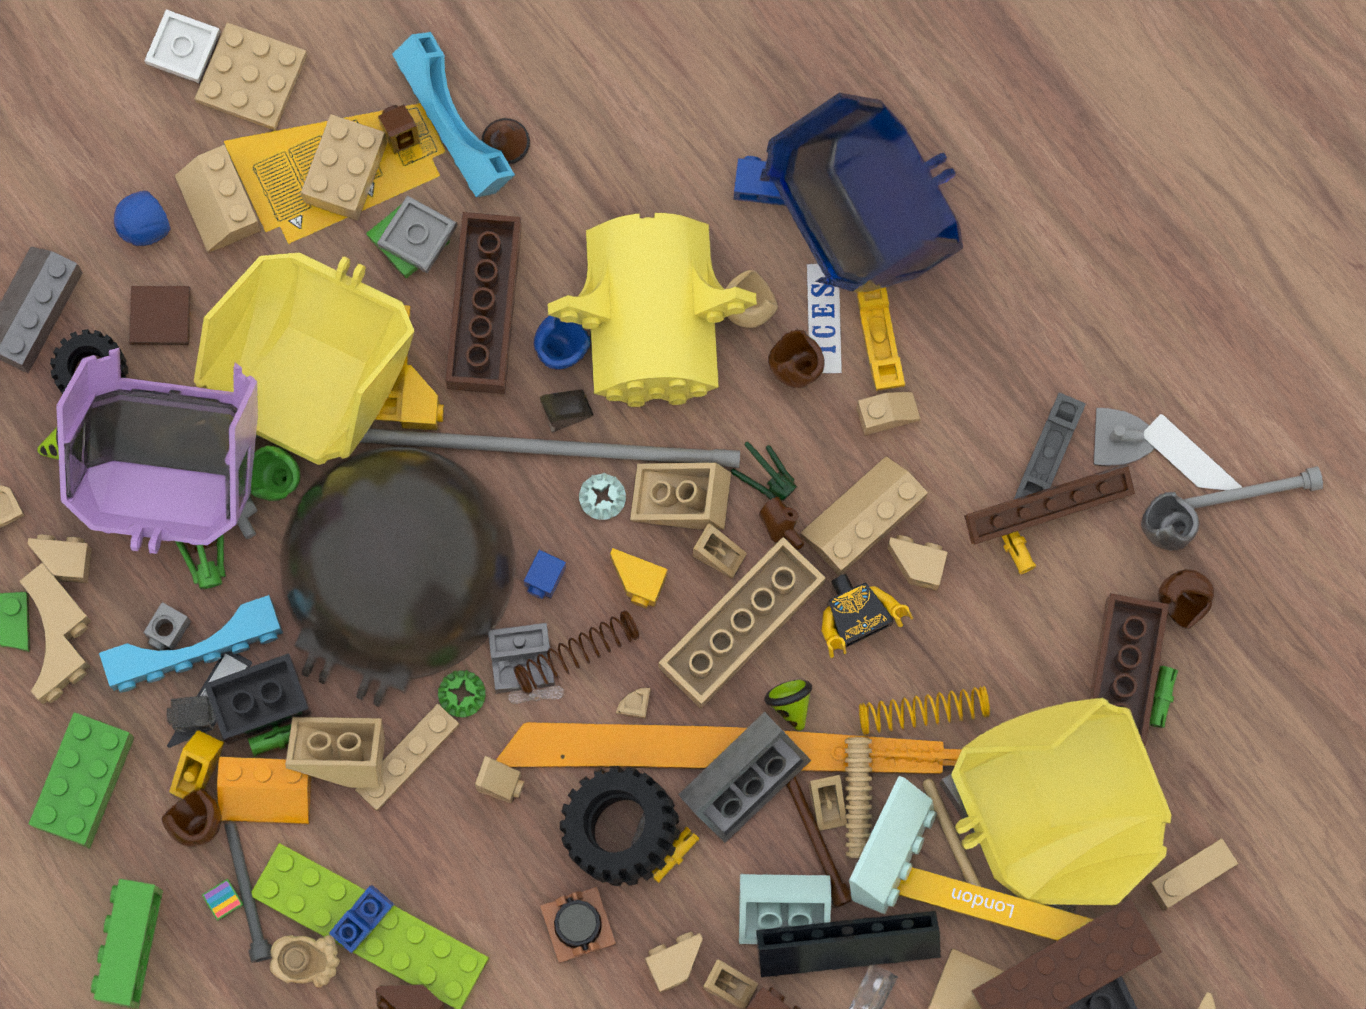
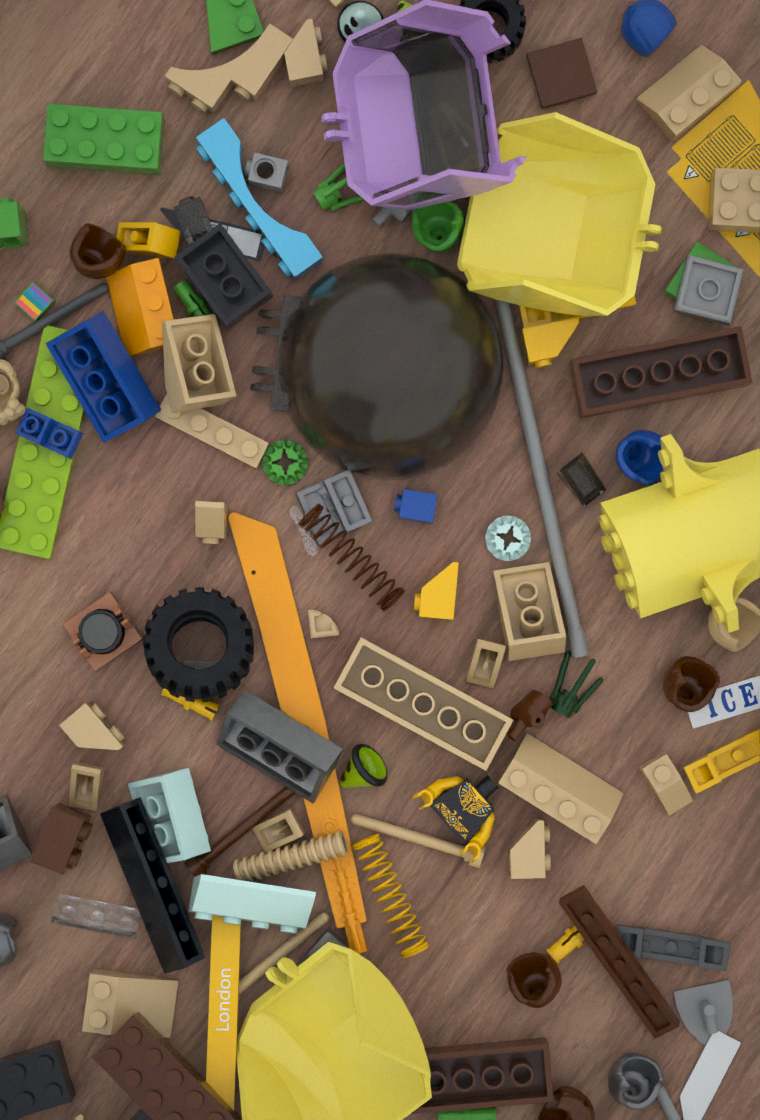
camera: 75 degrees right, 10 degrees up
(43, 496) = (357, 17): none -> light aqua hat
(321, 847) = (103, 376): none -> blue slope
(873, 669) = (416, 837): none -> tan piece
(1044, 591) = (534, 979): none -> reddish brown piece

